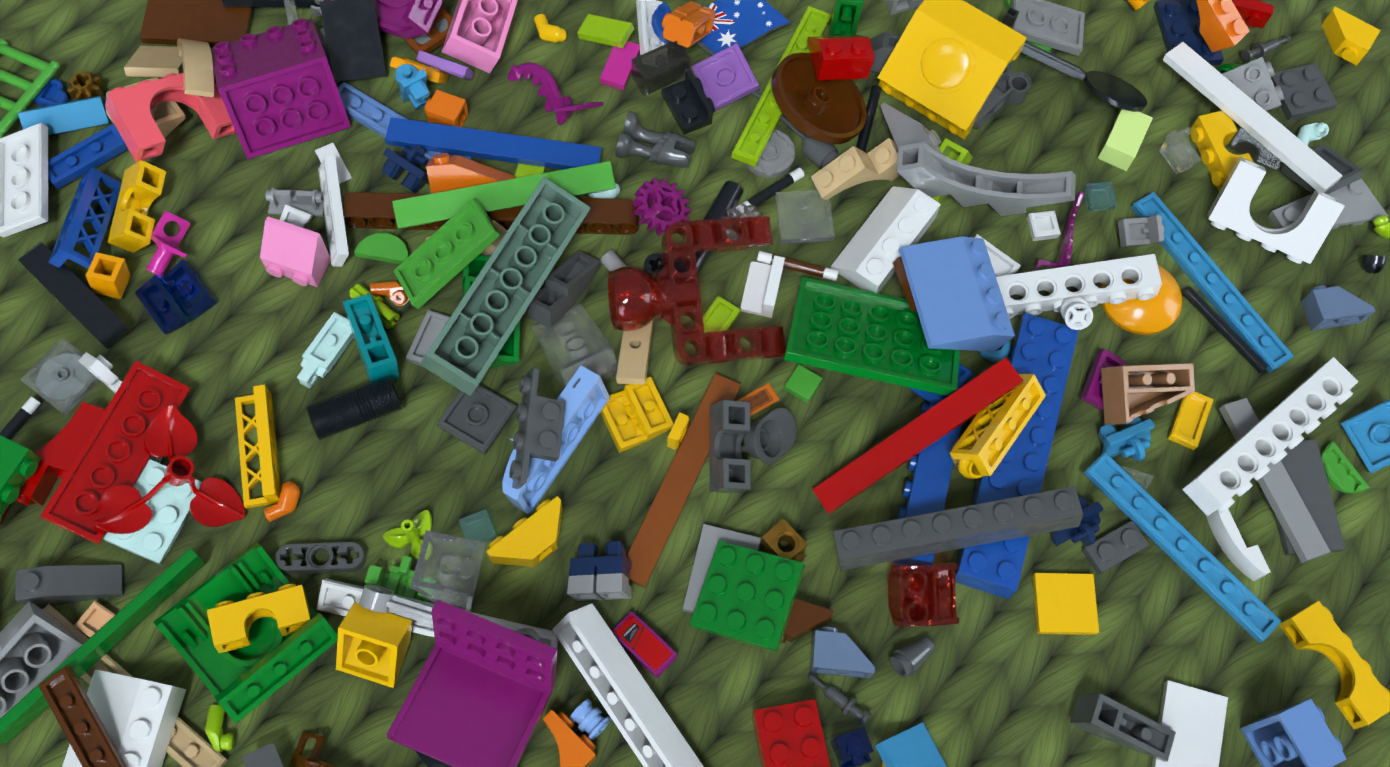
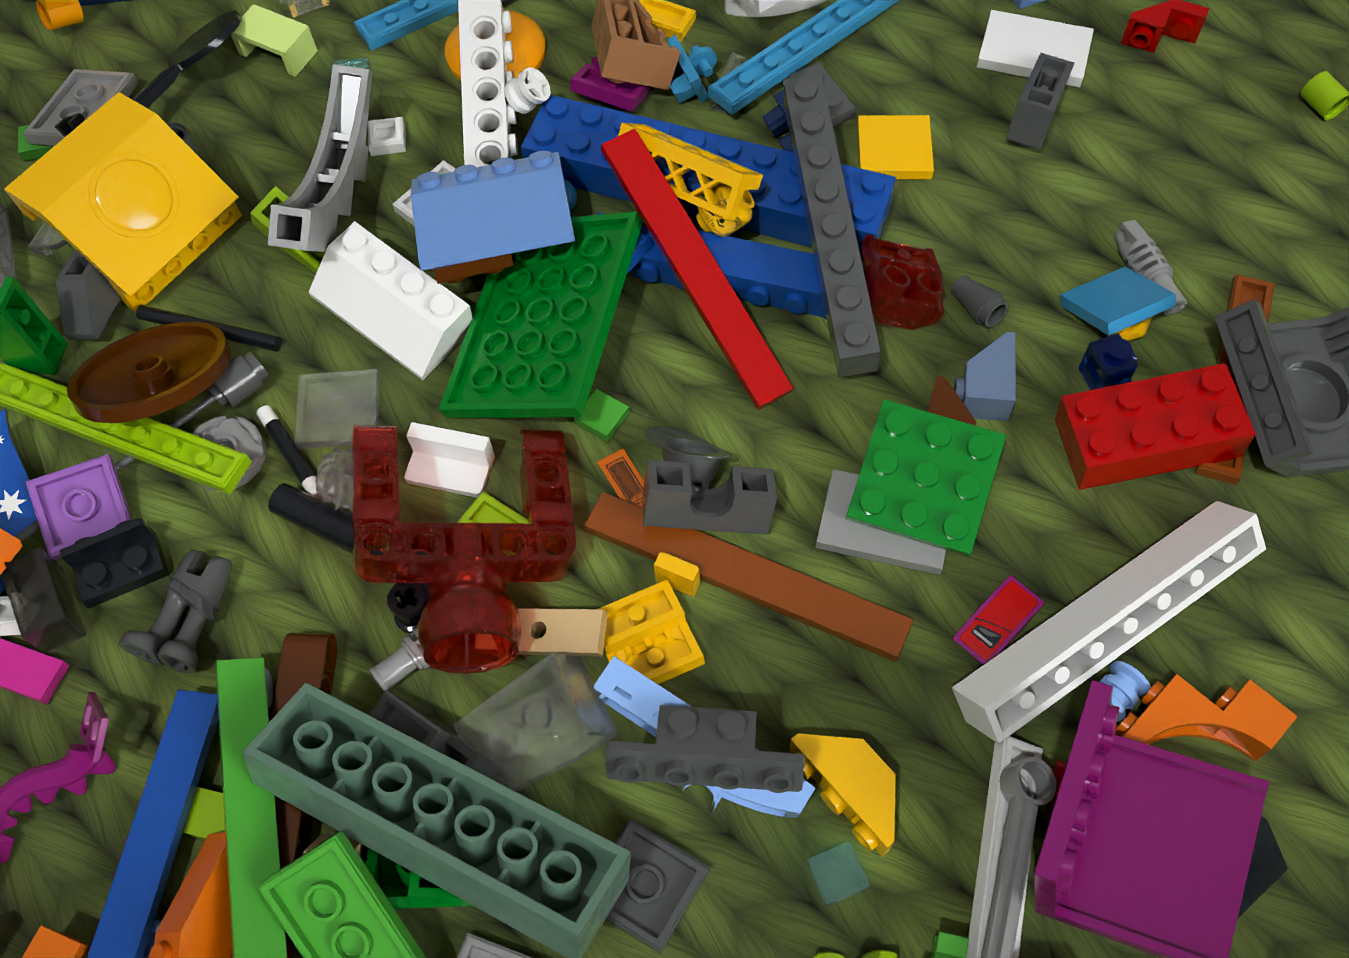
camera: 80 degrees left, 5 degrees down
(448, 569) = (924, 900): clear slope -> none
(599, 576) = (905, 656): hips -> none
(660, 205) = (300, 597): magenta gear -> none
(784, 532) = (836, 452): pearl gold brick -> none
(800, 266) = (419, 412): reddish brown bar -> none
(841, 56) = (85, 333): red slope -> none
(841, 700) = (1050, 373): dark grey piece -> none
(857, 167) = (277, 327): tan arch -> none
(907, 130) = (235, 257): light grey slope -> none
(1066, 240) = (424, 106): magenta piece -> none
(1141, 231) = (410, 32): light grey bracket -> none

